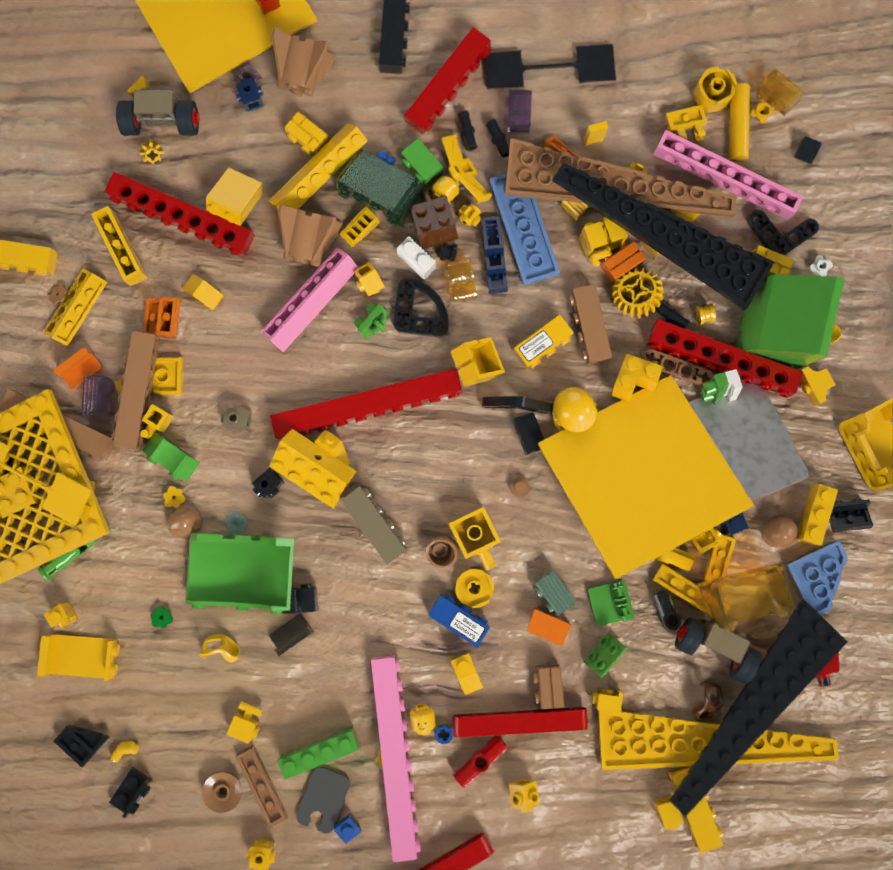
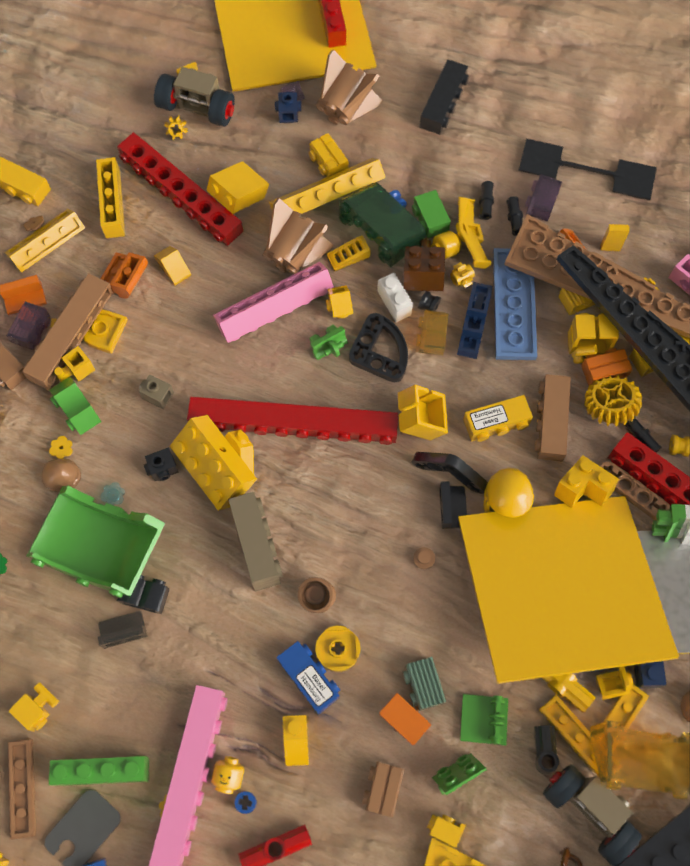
camera: 20 degrees right, 15 degrees down
(228, 649) = (49, 620): yellow piece -> none
(448, 81) = (482, 150): red brick -> none
(476, 536) = (359, 590): yellow brick -> none
(520, 722) = (337, 819): red beam -> none

